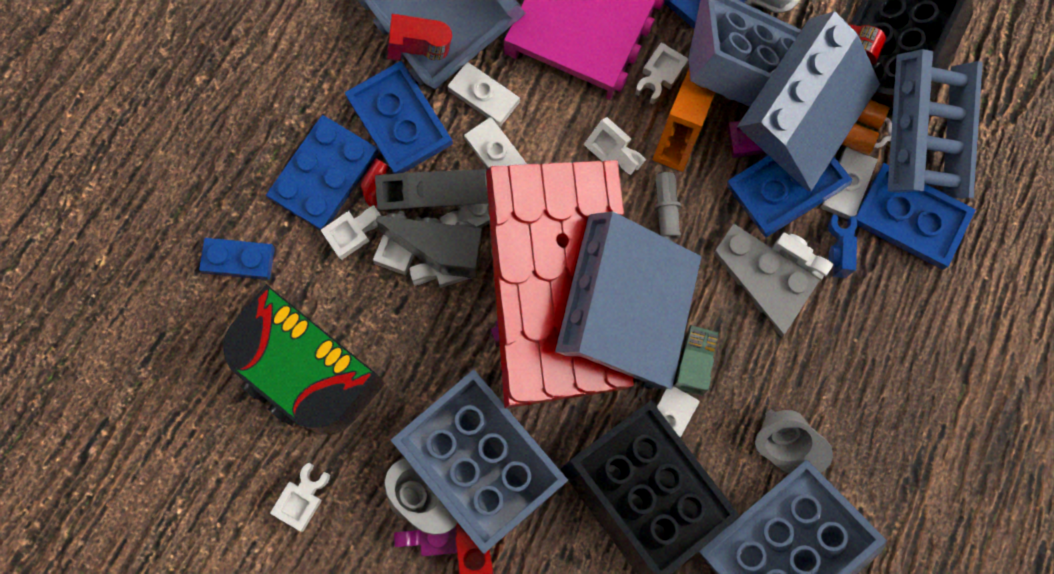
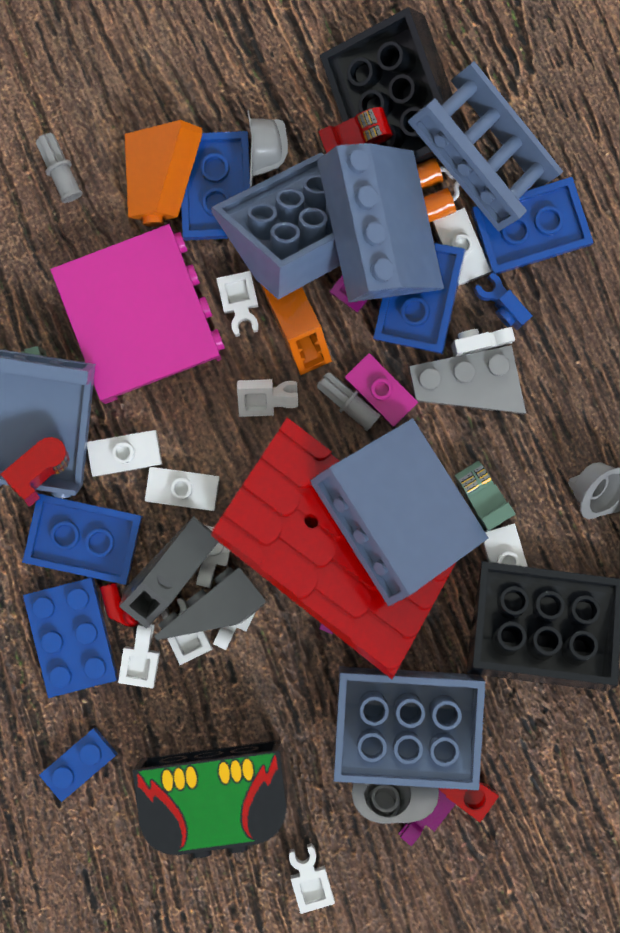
camera: 45 degrees left, 10 degrees up
(698, 220) = (381, 390): none -> dark pink plate

